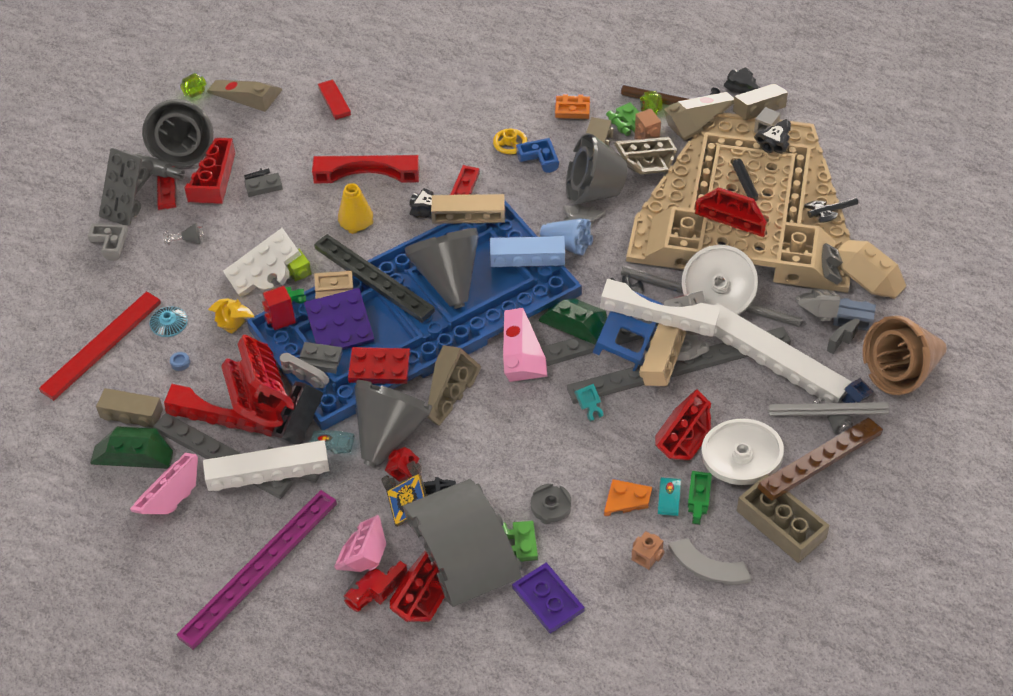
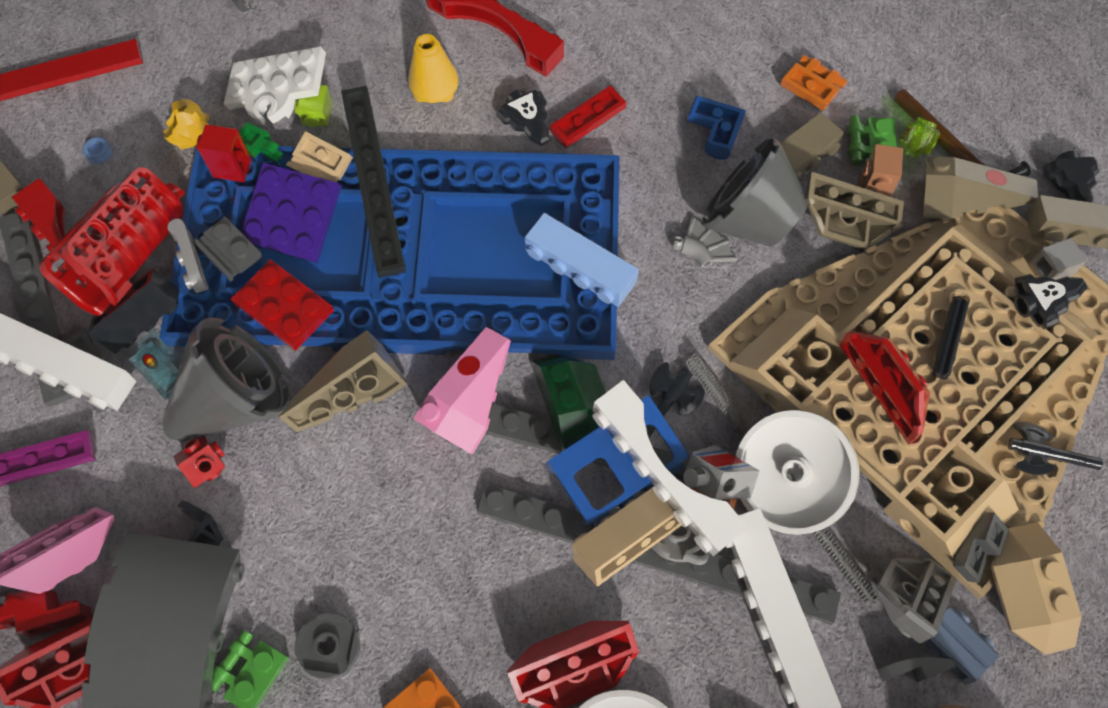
camera: 35 degrees right, 15 degrees up
(168, 321) = (131, 91): dish -> none
(405, 492) = (171, 505): flag -> none
(447, 263) = (461, 217): dark grey cone -> none
(468, 208) = (558, 152): tan brick -> none
(509, 139) = (699, 78): yellow piece -> none
(575, 233) = (661, 268): light blue cone -> none
(588, 399) = (491, 527): teal plate -> none

